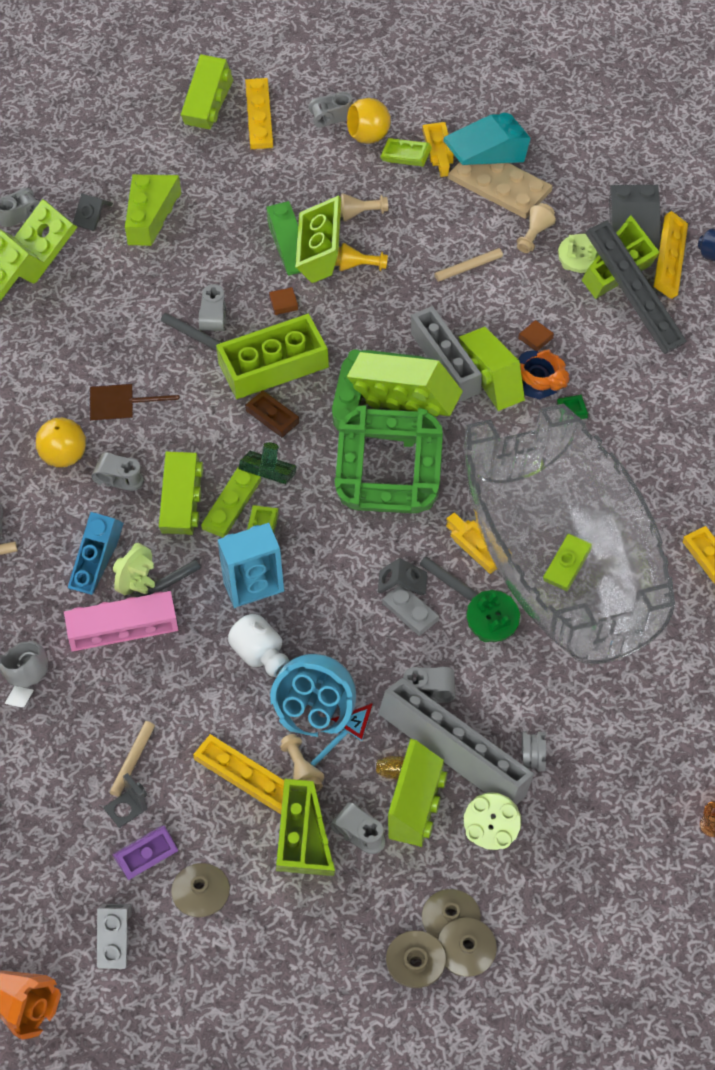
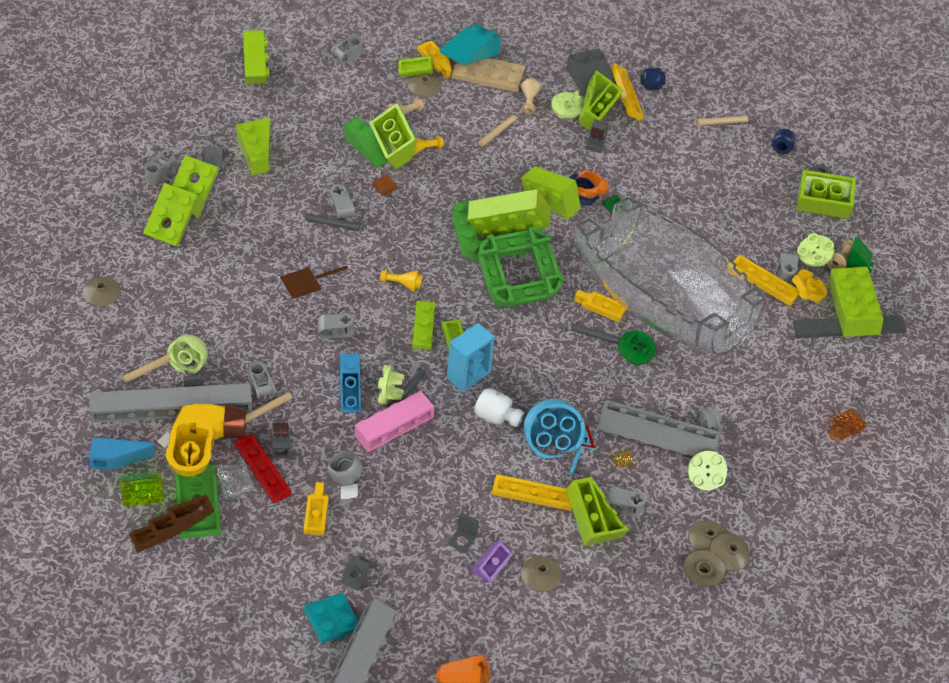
camera: 30 degrees left, 5 degrees down
(60, 442) = (285, 317): yellow helmet -> none
(112, 935) = (503, 618): light grey bracket -> none
(132, 757) = (450, 521): tan bar -> none
(180, 493) = (390, 326): lime wedge -> none
(246, 437) = (411, 280): none -> yellow piece
(259, 113) = (296, 64): yellow plate -> none
(267, 464) = (437, 293): clear green tile -> none
(272, 356) = (401, 222): lime brick -> none
(272, 413) = (420, 260): reddish brown plate -> none
(302, 769) = (566, 476): tan piece -> none
(368, 120) = (380, 50): yellow helmet -> none
(404, 575) = (566, 337): dark grey bracket -> none
(408, 180) = (424, 85): none -> dark tan dish
(410, 610) = (580, 359): light grey plate -> none
(416, 795) = (651, 470): lime slope -> none
(434, 682) = (623, 396): light grey piece -> none
(440, 344) = (505, 181): light grey brick -> none
(536, 335) = (566, 165): dark orange tile -> none
(567, 562) = (670, 295): lime plate -> none
(594, 306) = (597, 136): none -> dark grey leg
(635, 287) = (620, 116): dark grey tile -> none

